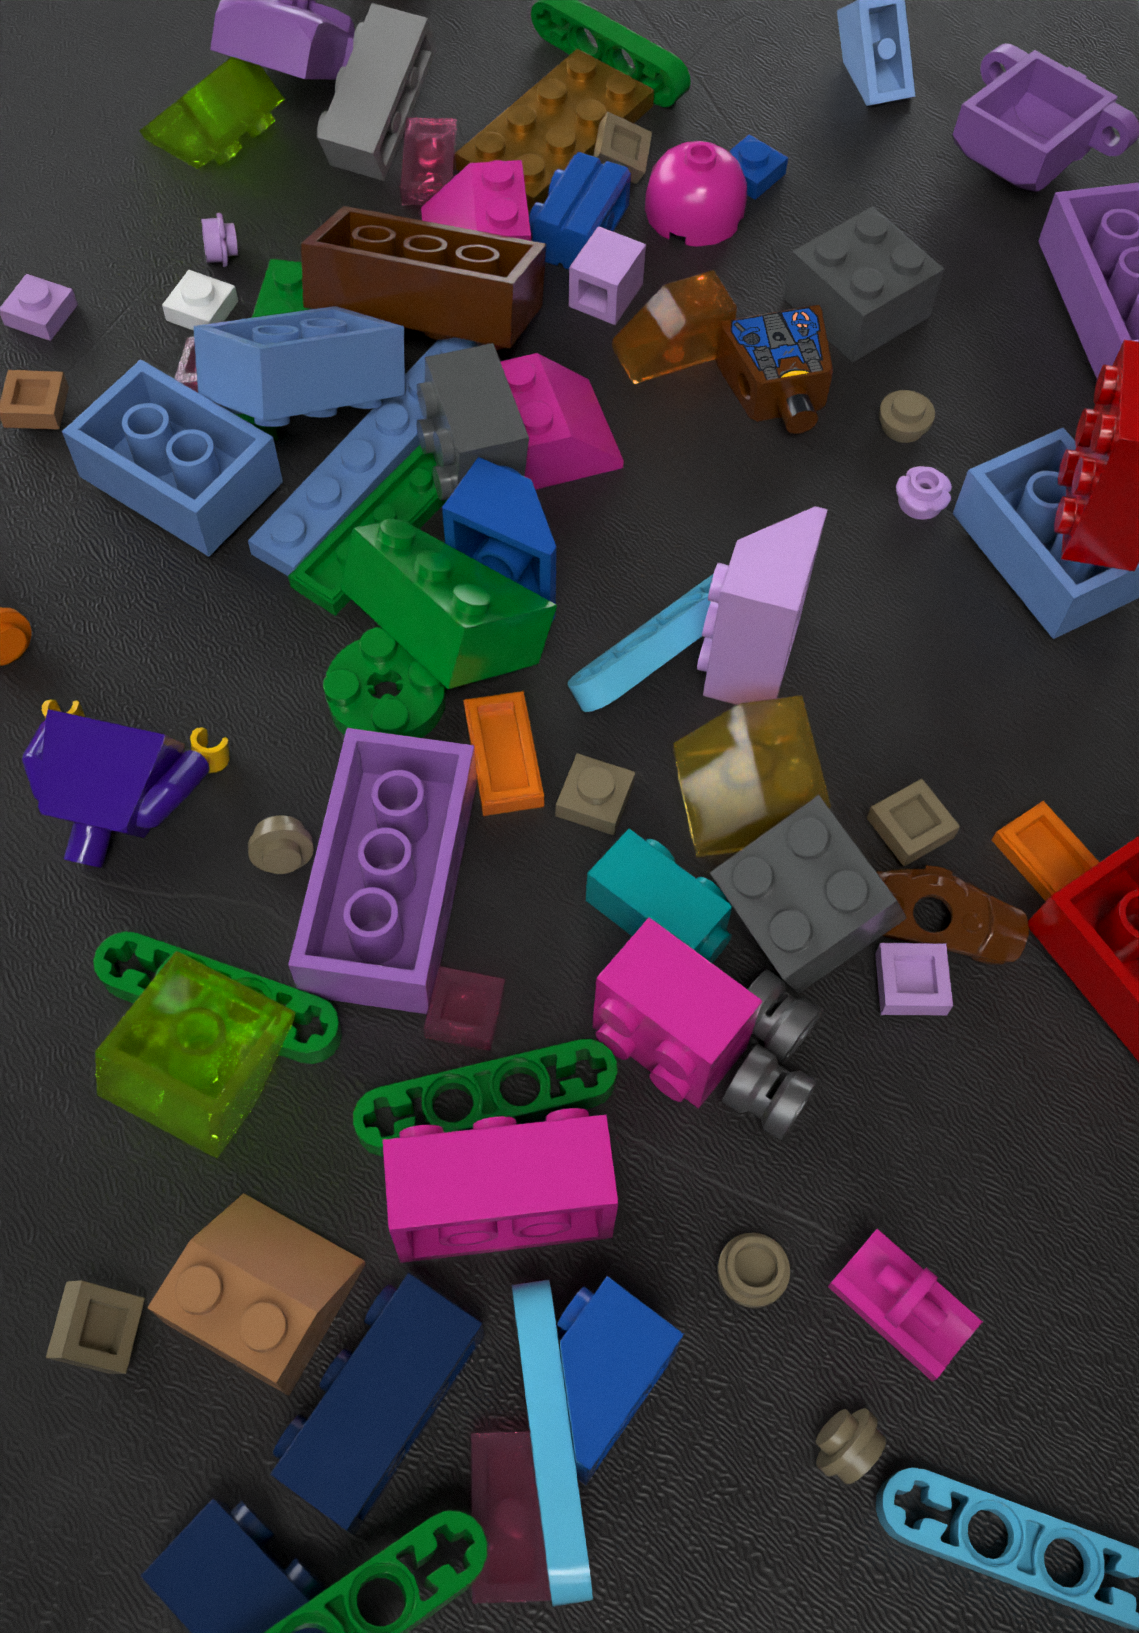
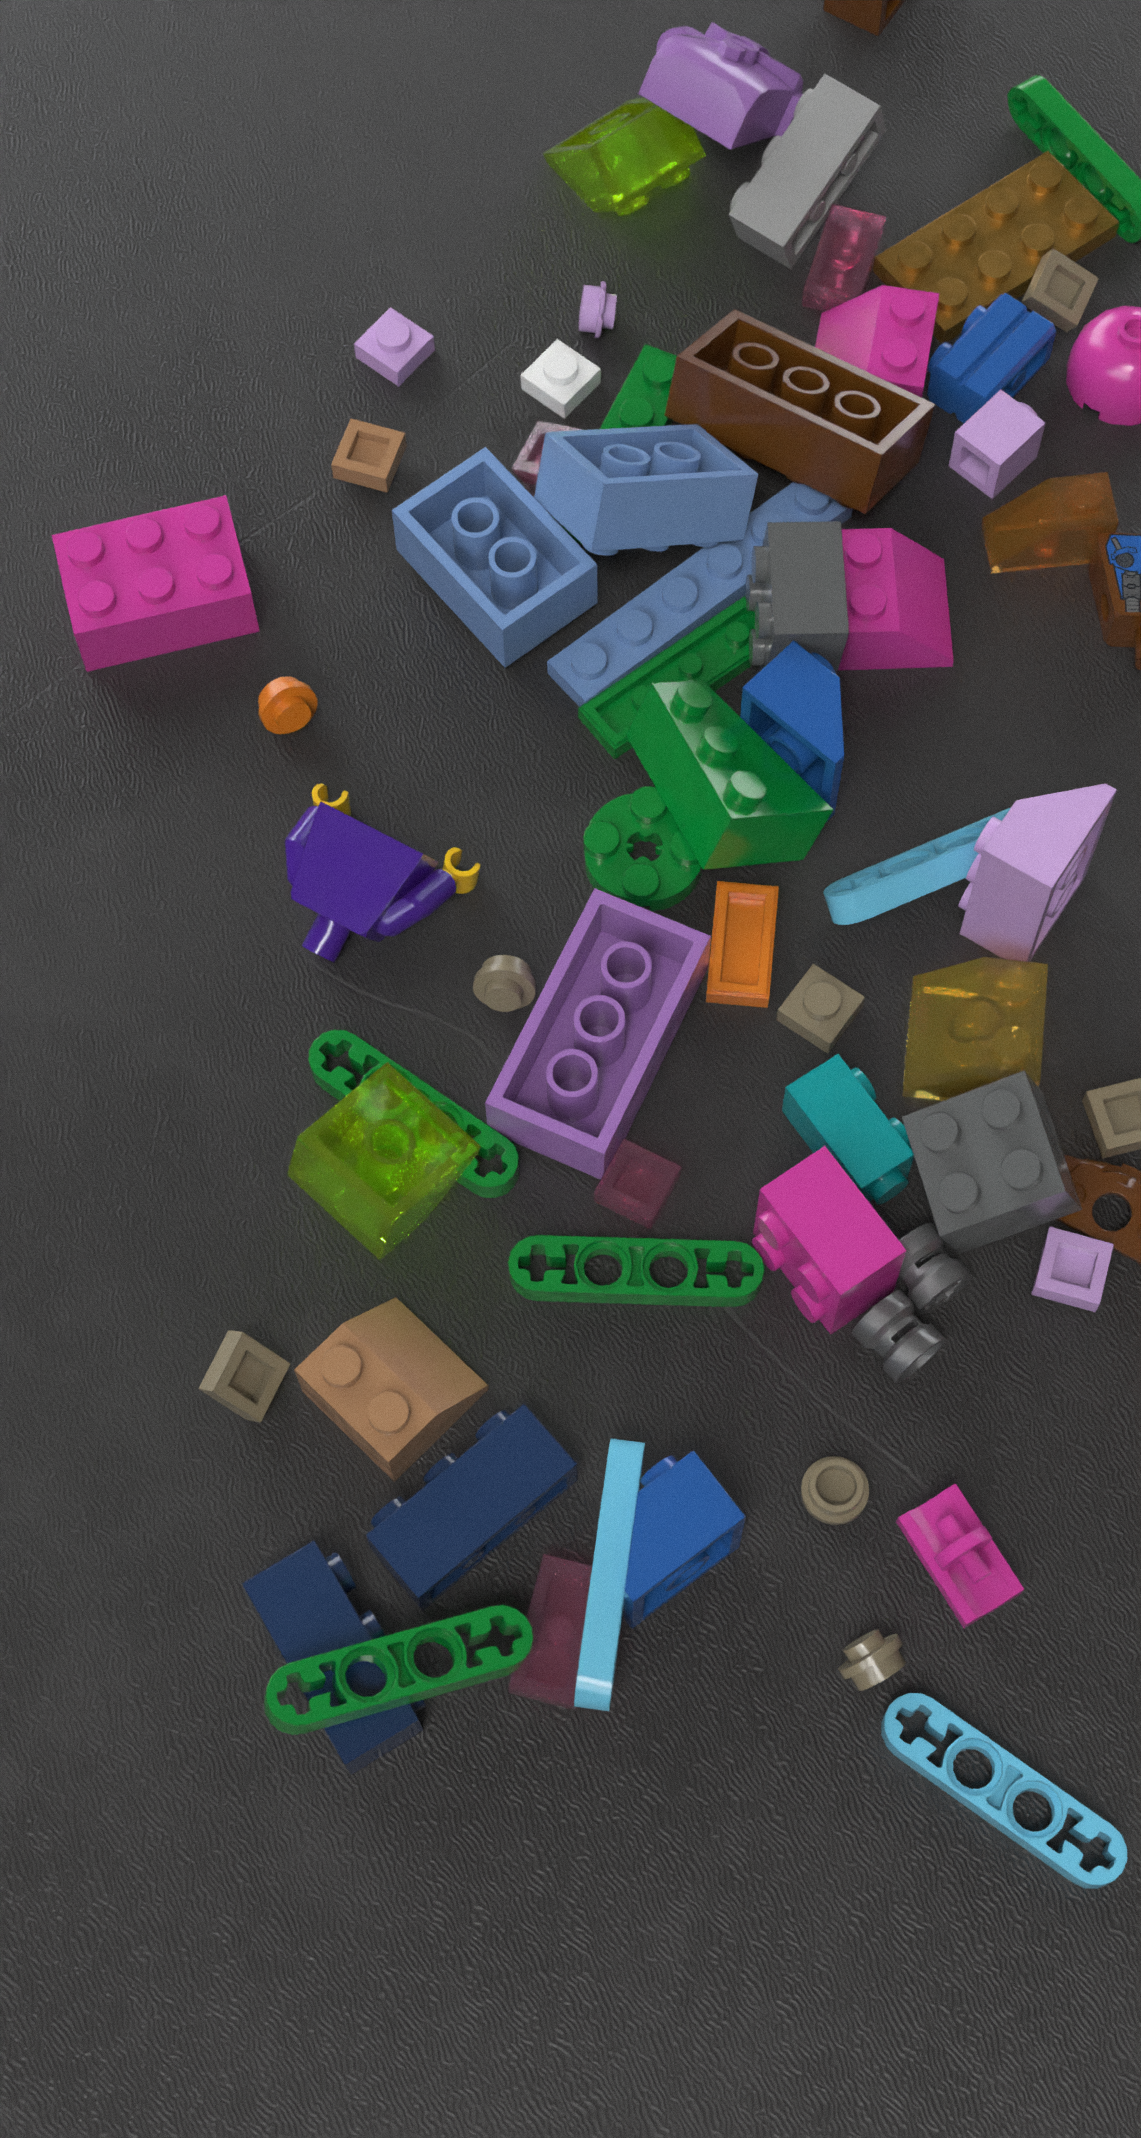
camera: 20 degrees right, 5 degrees up
(500, 1185) = (623, 1352): dark pink brick -> none

